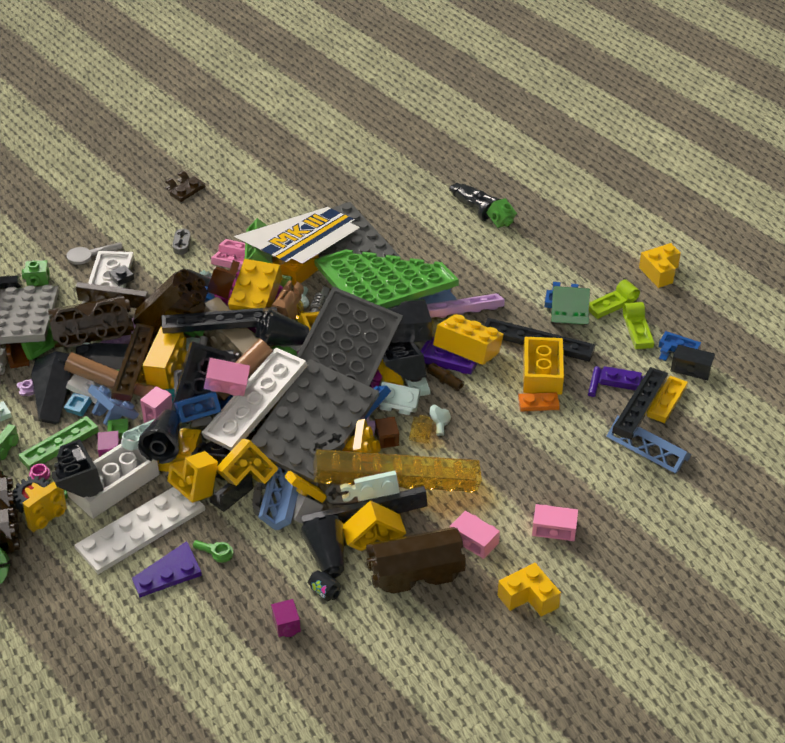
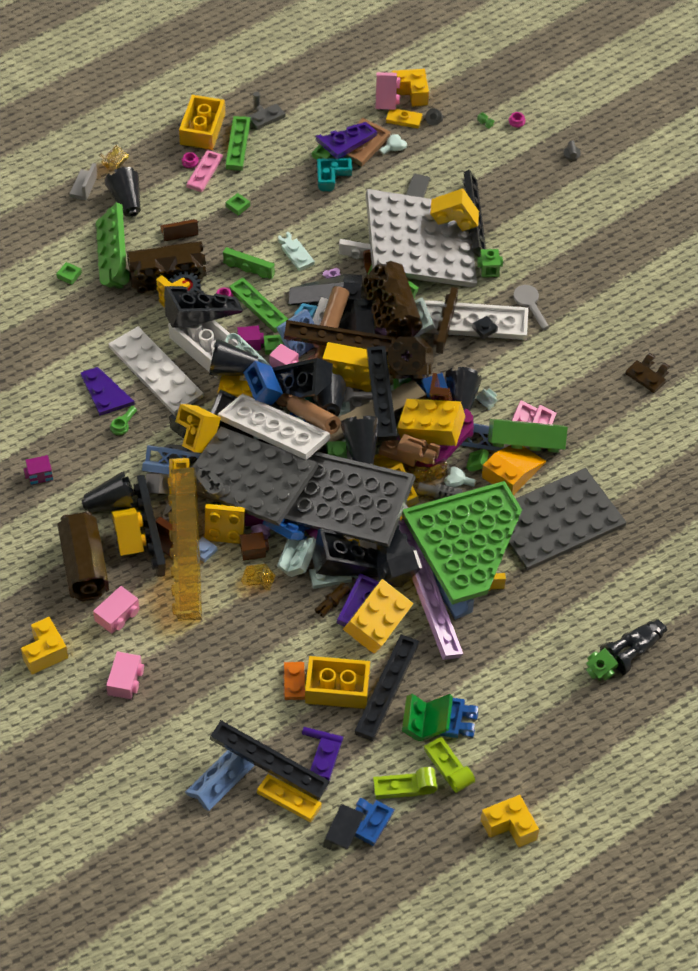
camera: 90 degrees right, 10 degrees up
(185, 241) = (551, 376): dark grey beam -> none
(194, 476) = (195, 391): yellow brick -> none
(226, 377) = (285, 394): bright pink brick -> none
(301, 236) = (540, 468): sticker -> none
(324, 585) = (71, 497): black brick -> none
(371, 487) = (163, 521): light aqua plate -> none
(440, 417) = (272, 592): light aqua rock -> none

